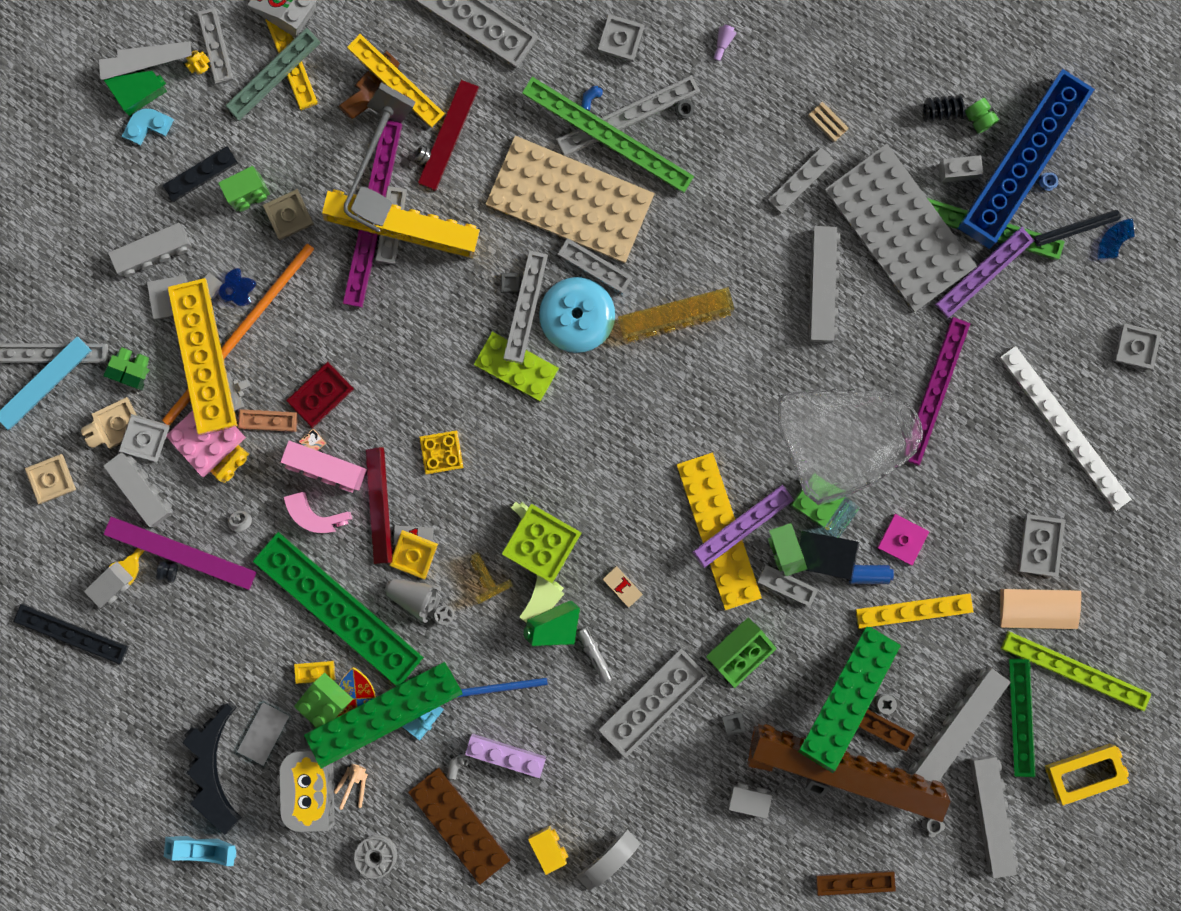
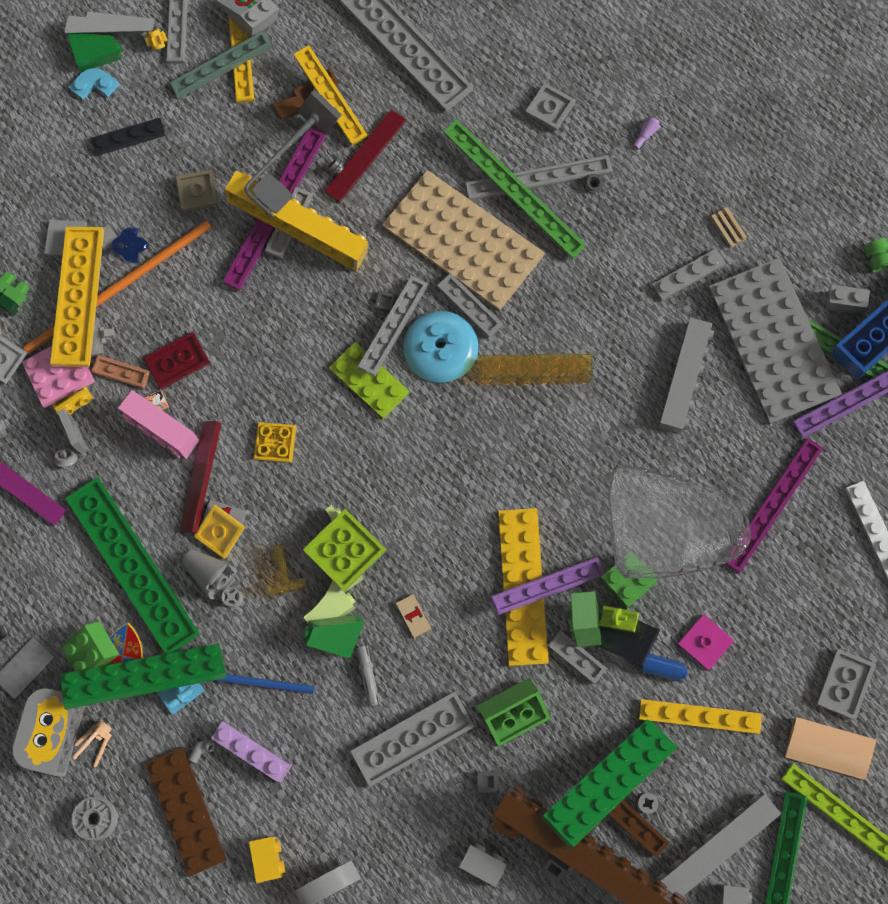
camera: 25 degrees right, 10 degrees down
(150, 250) = (61, 191): light grey brick -> none
(240, 494) = (72, 431): none -> light grey tile
(244, 189) = (163, 156): bright green brick -> none
(302, 514) = (124, 462): bright pink arch -> none
(312, 671) = (85, 616): yellow plate -> none
(590, 94) = (507, 150): blue arm -> none
(819, 541) = (619, 619): none -> lime hips
(841, 518) = (649, 602): clear light blue plate -> none
(943, 106) = (844, 238): black piece -> none

